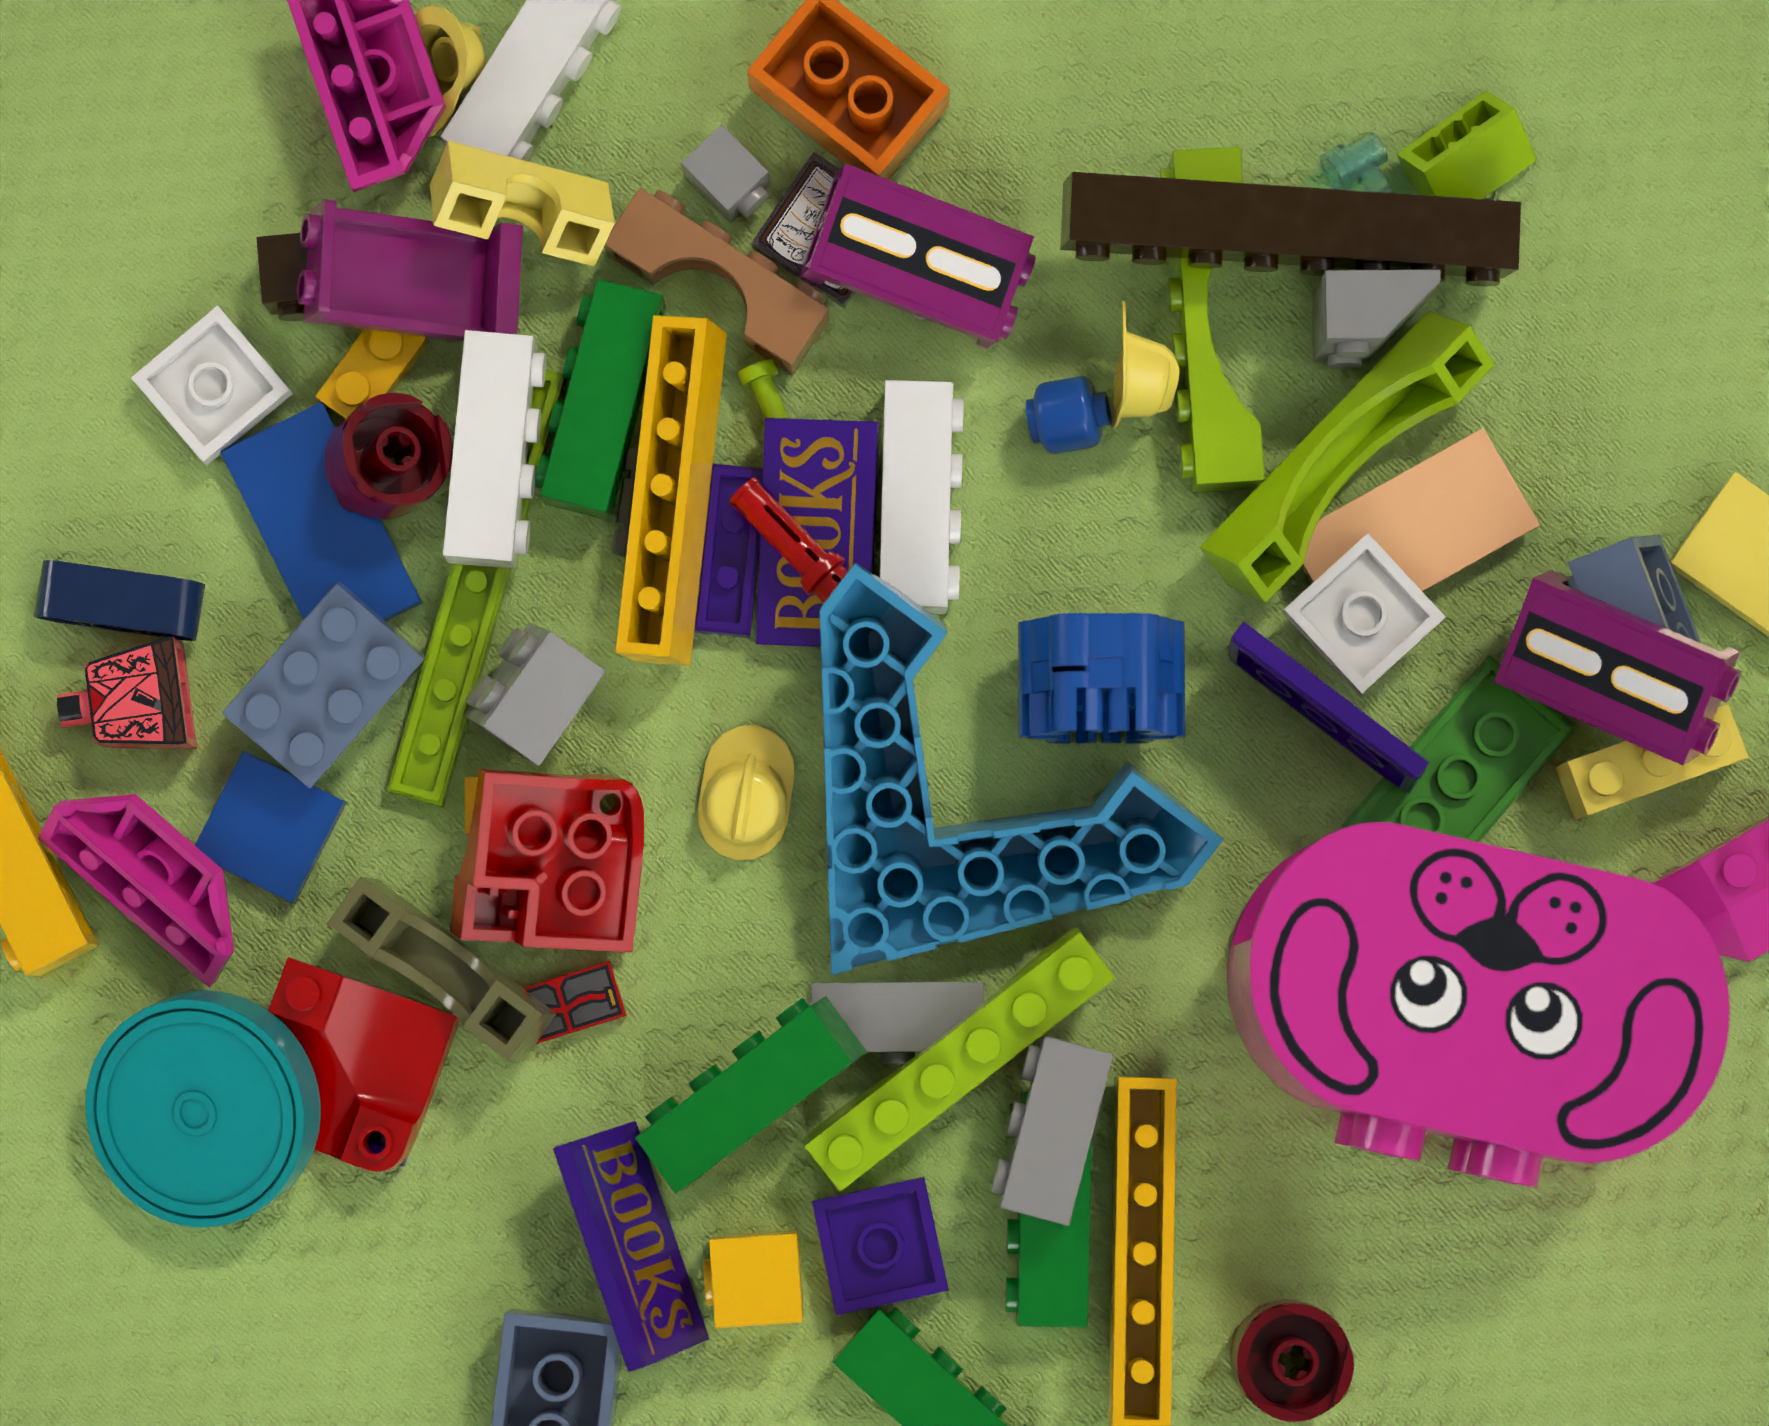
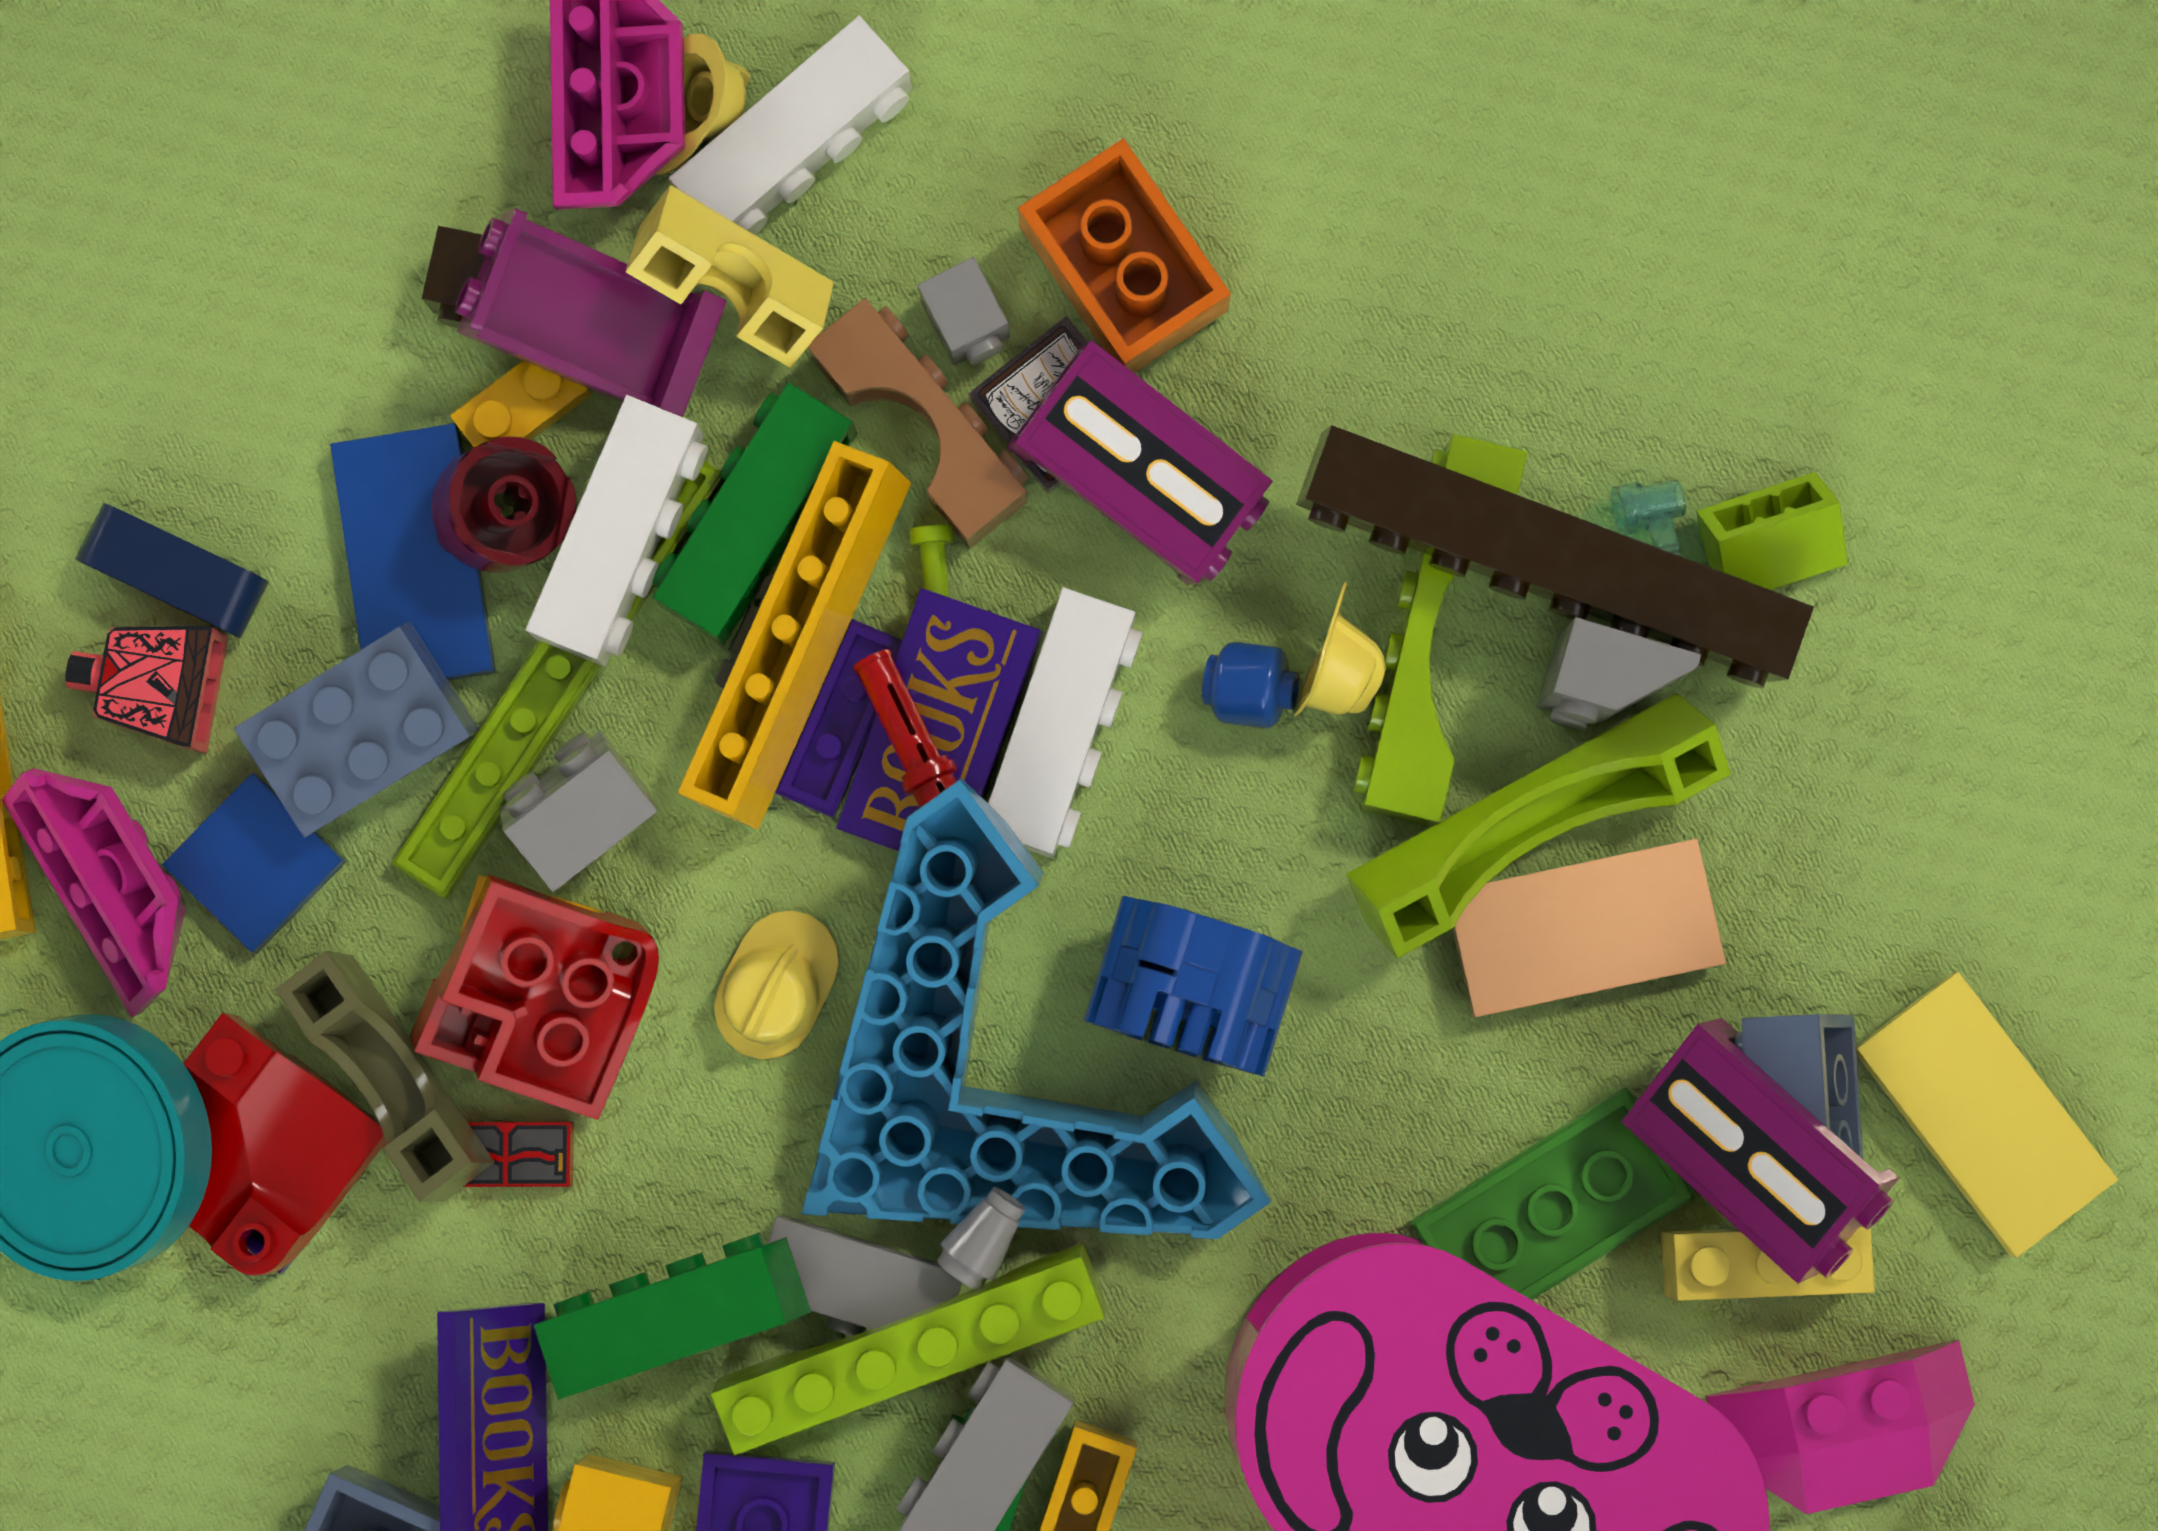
camera: 20 degrees right, 0 degrees up
(211, 385) = (344, 370): white plate -> none
(991, 946) = (981, 1239): none -> light grey cone
(1326, 709) = (1428, 1094): dark purple tile -> none
(1363, 614) = (1501, 1003): white plate -> none

